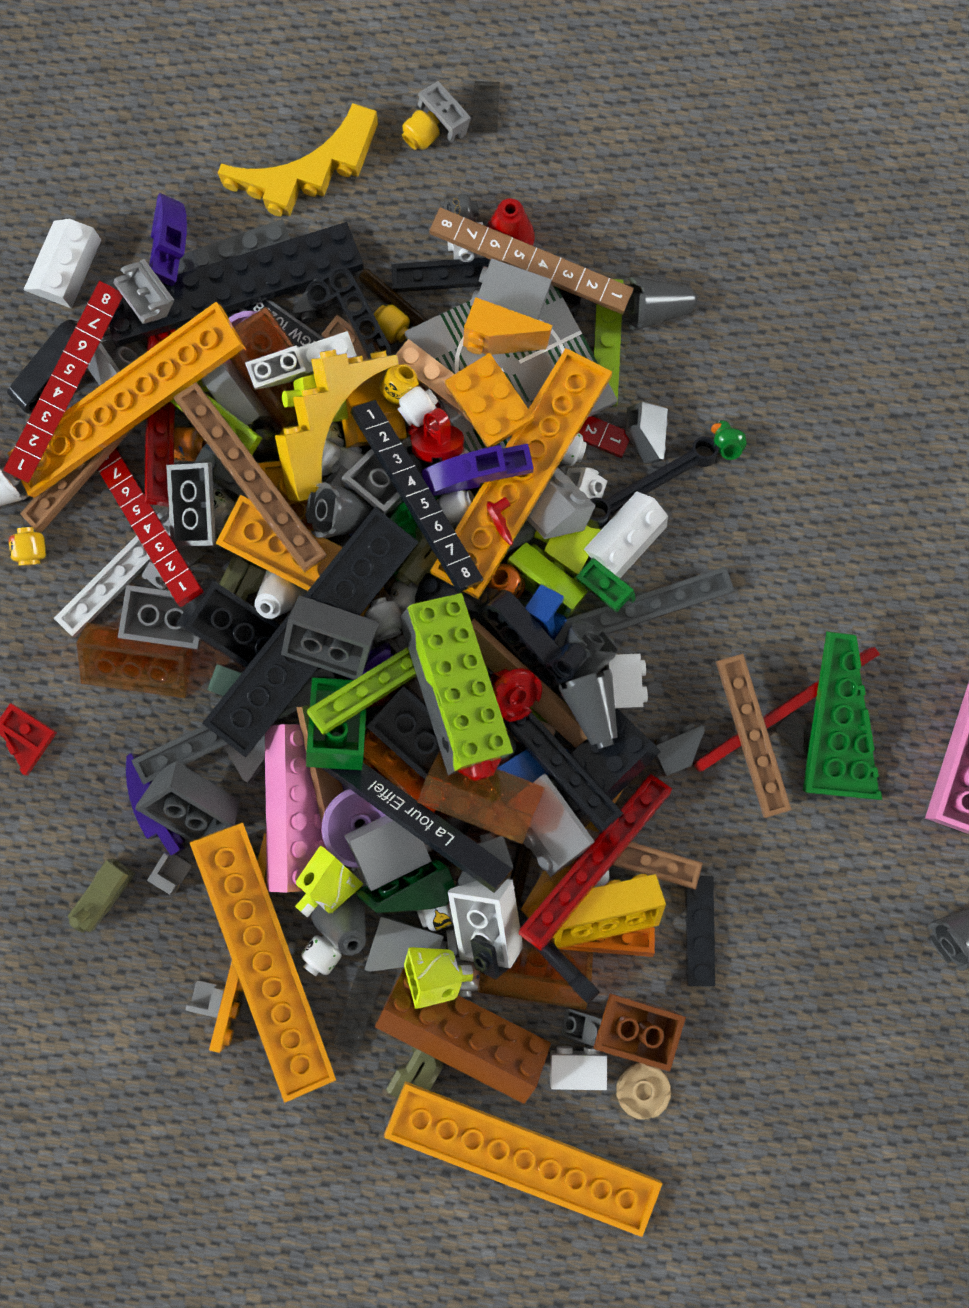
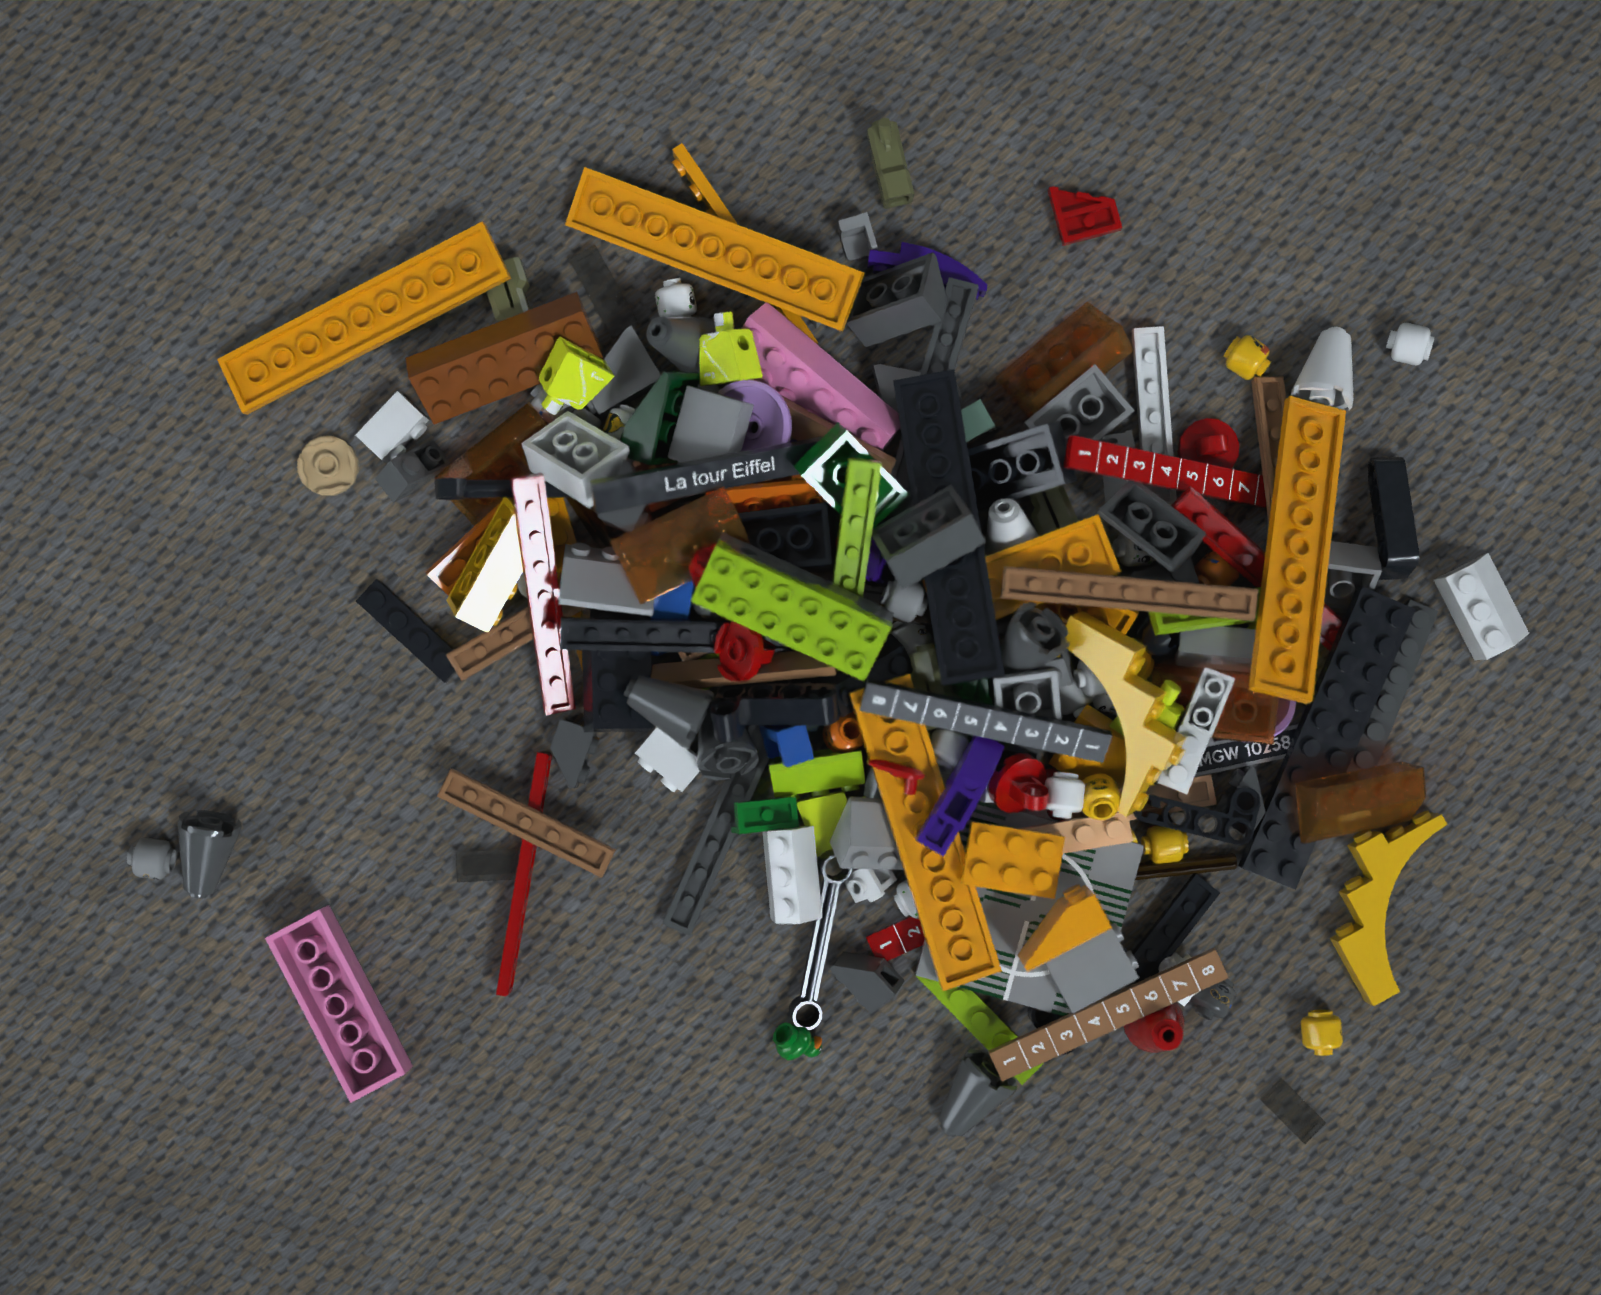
camera: 130 degrees right, 5 degrees up
(63, 382) = (1362, 511): red tile -> none
(106, 522) = (1209, 443): none -> red tile
(144, 292) = (1382, 650): light grey hinge -> none
(169, 238) = (1416, 718): dark purple slope -> none
(206, 998) = (726, 177): light grey panel -> none
(253, 229) = (1359, 800): none -> clear orange slope
(445, 109) = (1320, 1069): light grey hinge -> none
(485, 958) = (546, 429): black bracket -> none
(639, 1032) = (375, 503): dark orange slope -> none
(841, 734) = (460, 898): green wing -> none

